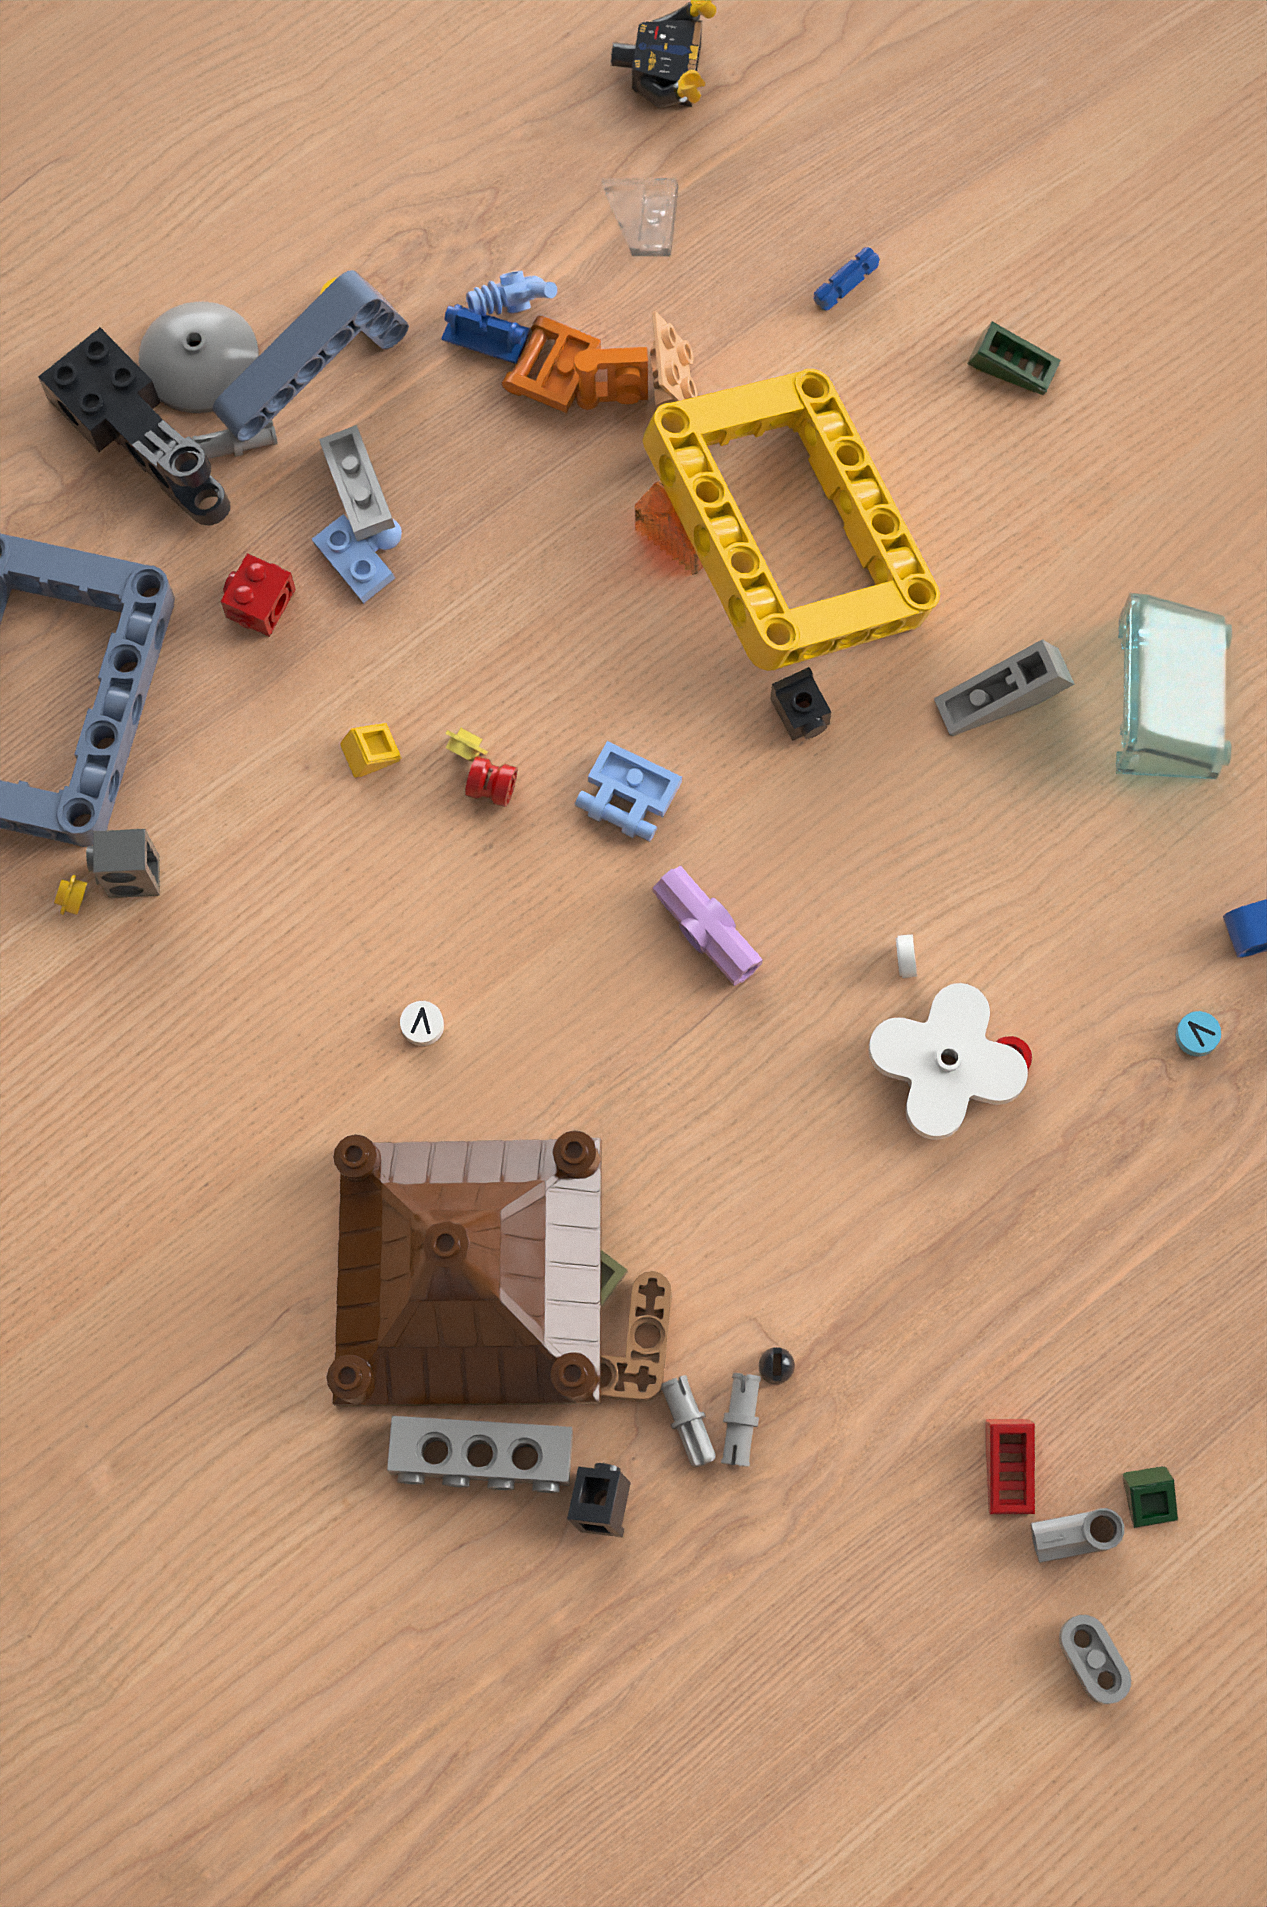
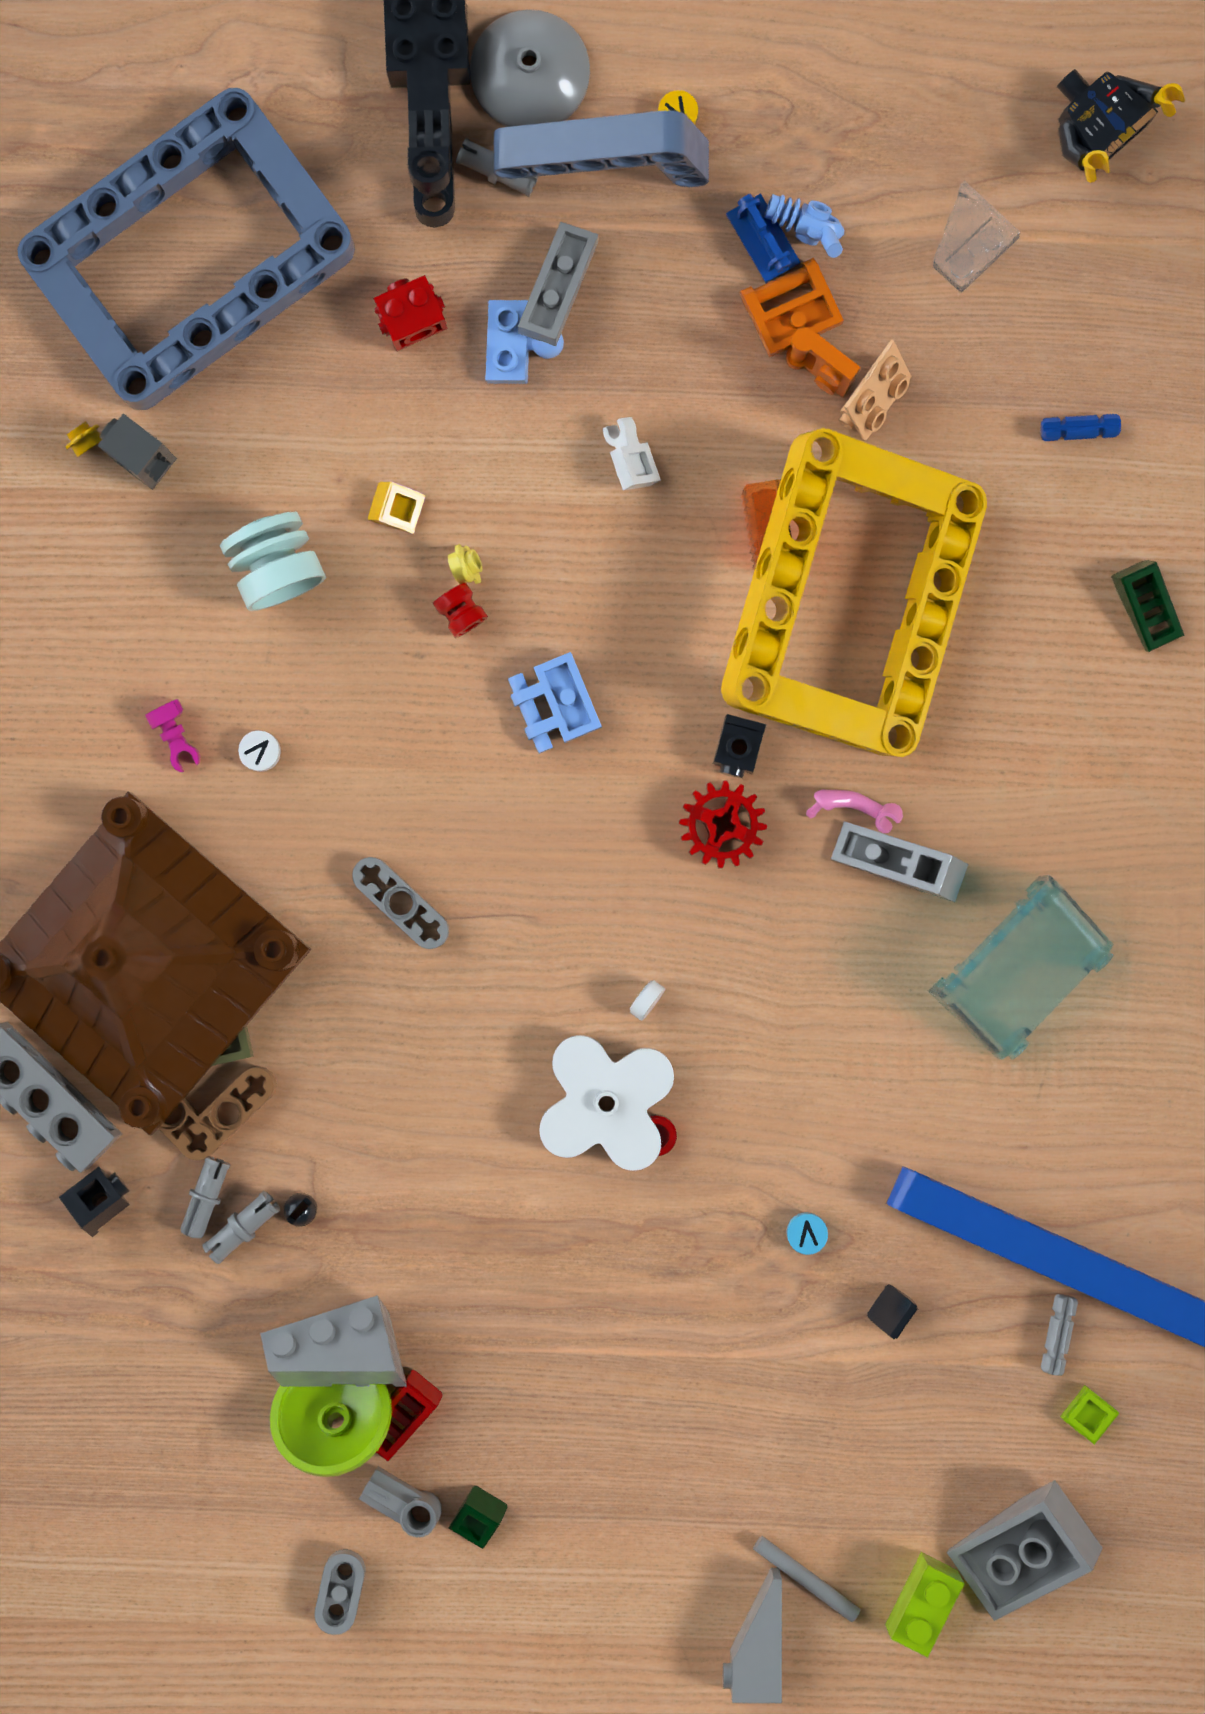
camera: 40 degrees right, 15 degrees up
(308, 858) = (269, 553): none -> light aqua wheel
(321, 1059) = (164, 717): none -> dark pink piece
(526, 563) = (631, 459): none -> white plate
(673, 1034) = (372, 889): none -> light grey beam
(707, 925) = (523, 854): lavender piece -> none
(858, 767) = (739, 832): none -> red gear
(909, 1445) = (336, 1347): none -> light grey wedge
(930, 675) = (833, 799): none -> bright pink piece
(938, 1489) = (304, 1431): none -> lime dish

